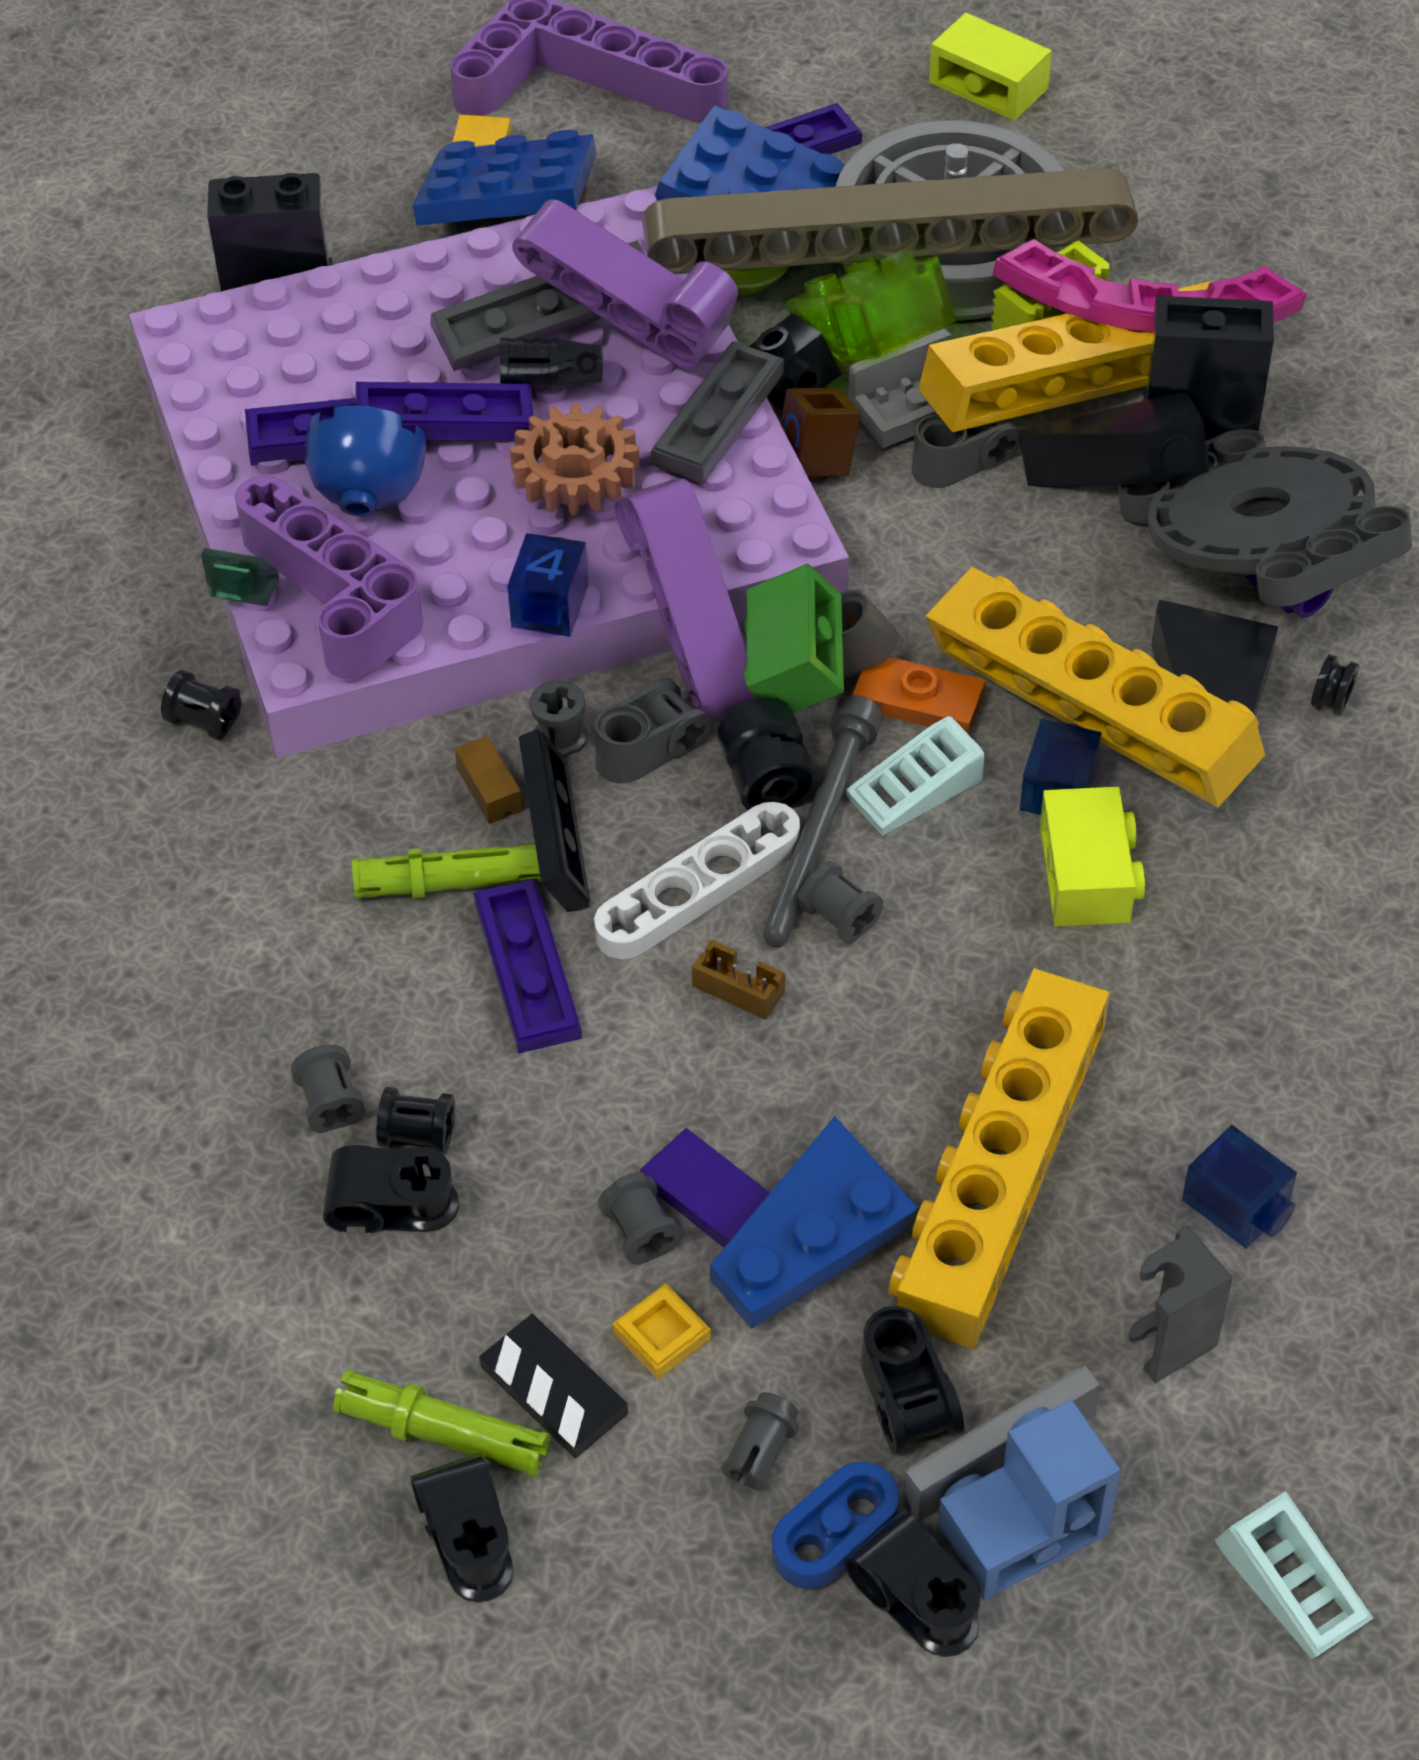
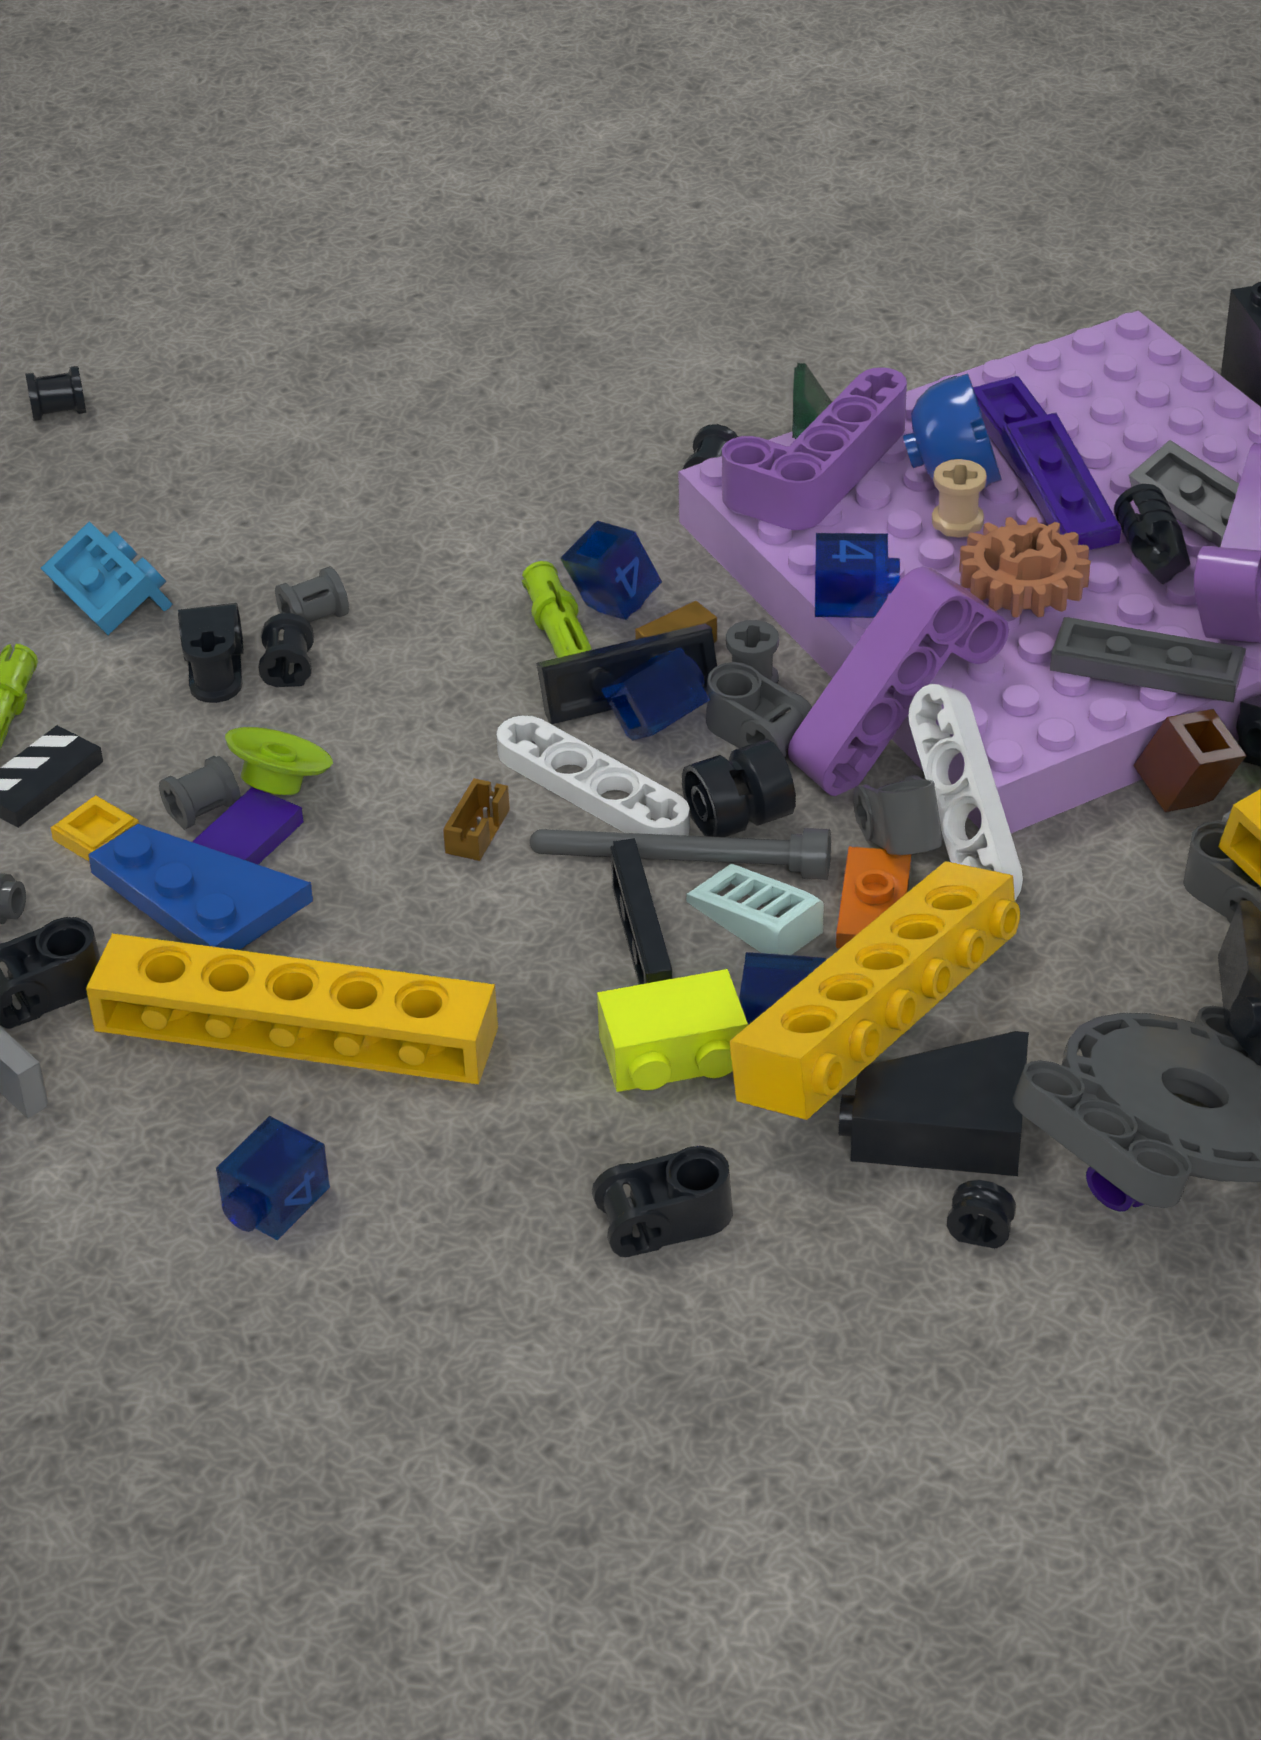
camera: 80 degrees right, 10 degrees down
(218, 1294) = (102, 577): none -> dark azure bracket
(395, 803) = (611, 570): none -> clear blue brick
(448, 484) = (959, 490): none -> tan bush
(527, 966) = (465, 696): dark purple tile -> none
(610, 796) = (656, 693): none -> clear blue brick
(613, 1134) = (276, 759): none -> lime piece
(794, 639) = (857, 757): bright green brick -> none
(840, 901) = (576, 868): dark grey bush -> none
(845, 575) = (972, 790): none -> white beam
(941, 860) = (638, 914): none -> black tile
(1188, 1306) = (106, 1119): dark grey hinge -> none
(1303, 897) = (669, 1200): none -> black piece

